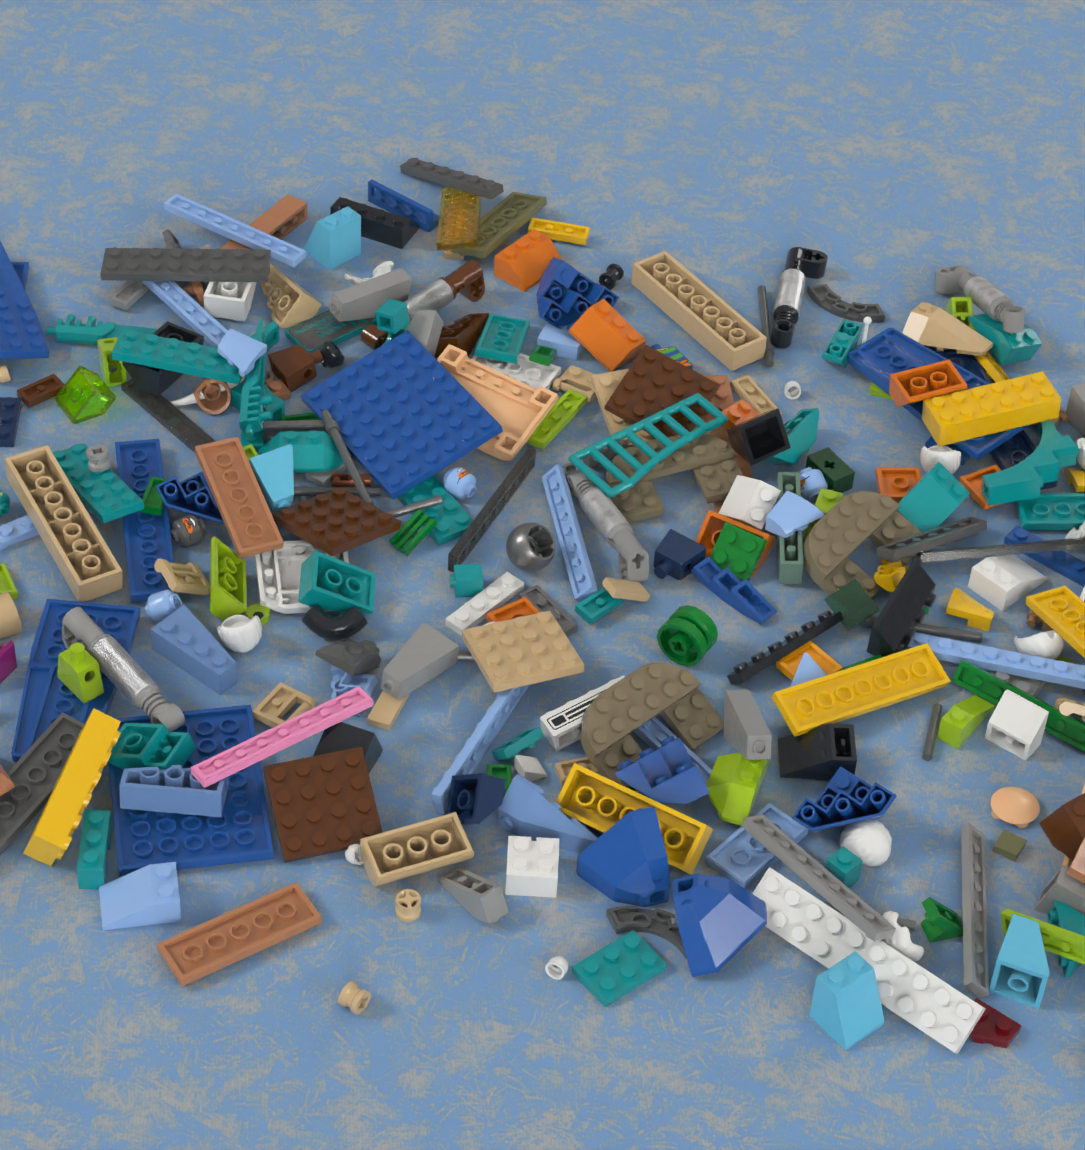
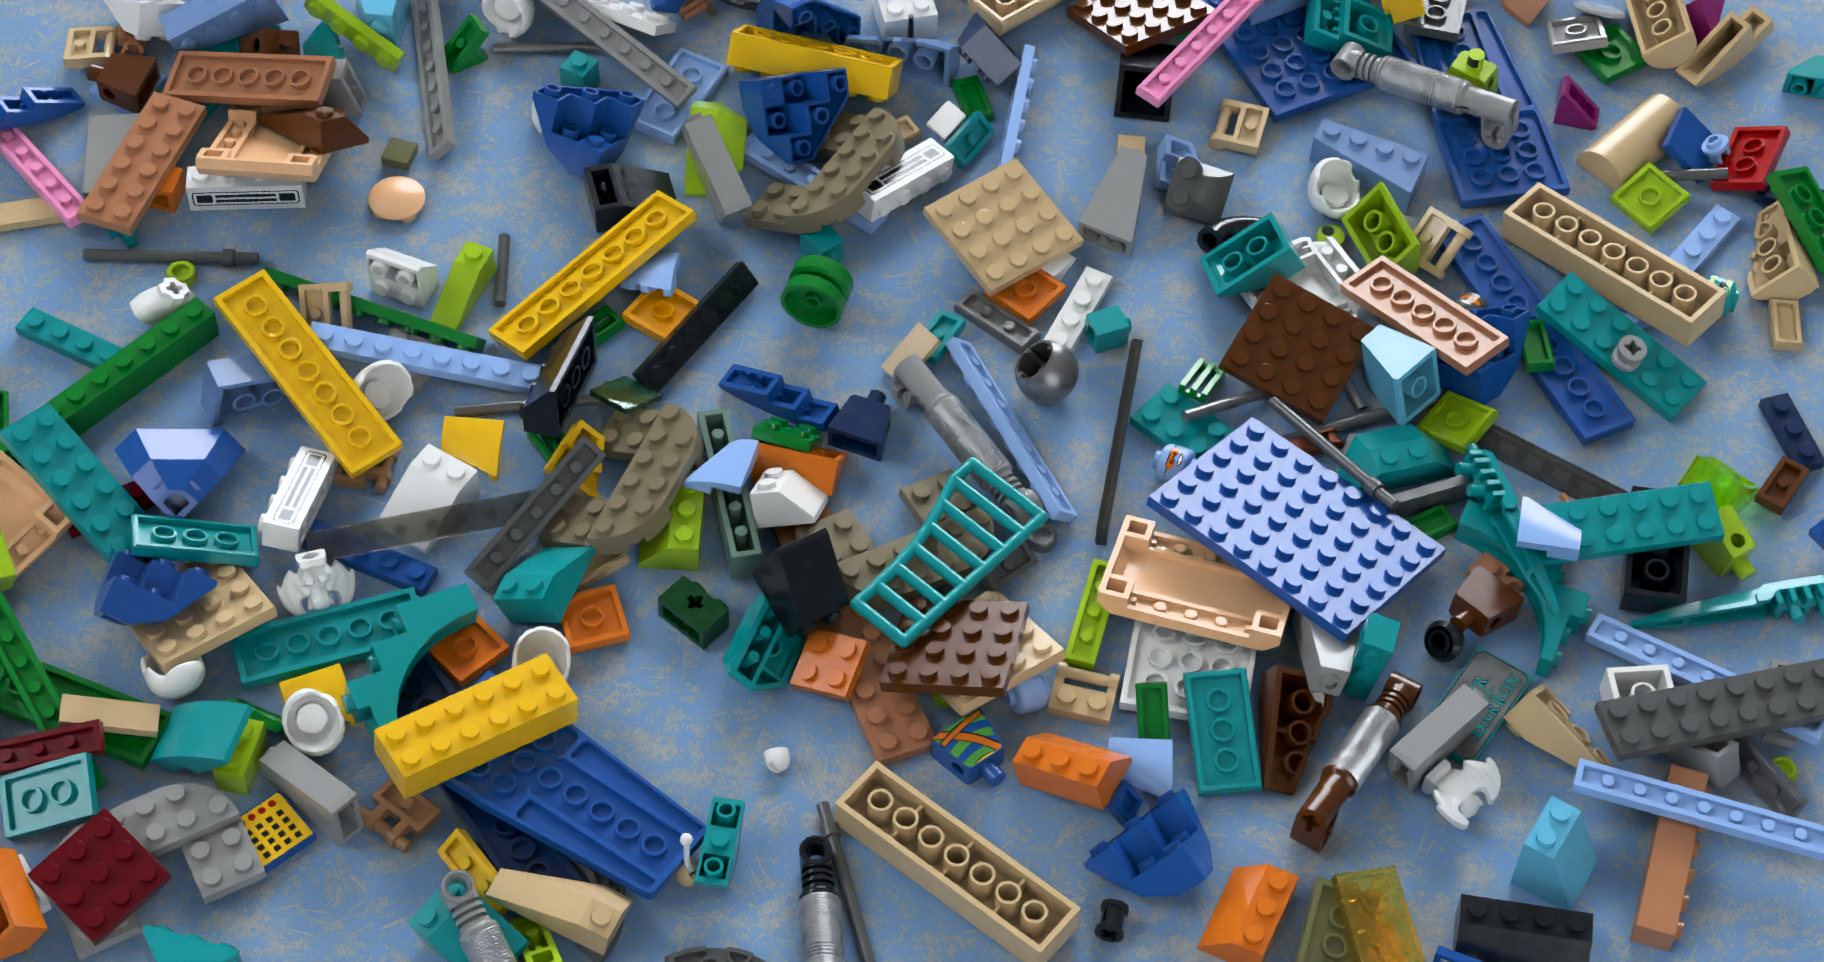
camera: 165 degrees right, 10 degrees up
(162, 604) = (1440, 200): light blue head -> none
(751, 393) = (827, 735): tan tile -> none
(811, 483) = (714, 574): light blue head -> none
(925, 383) = (575, 736): orange slope -> none

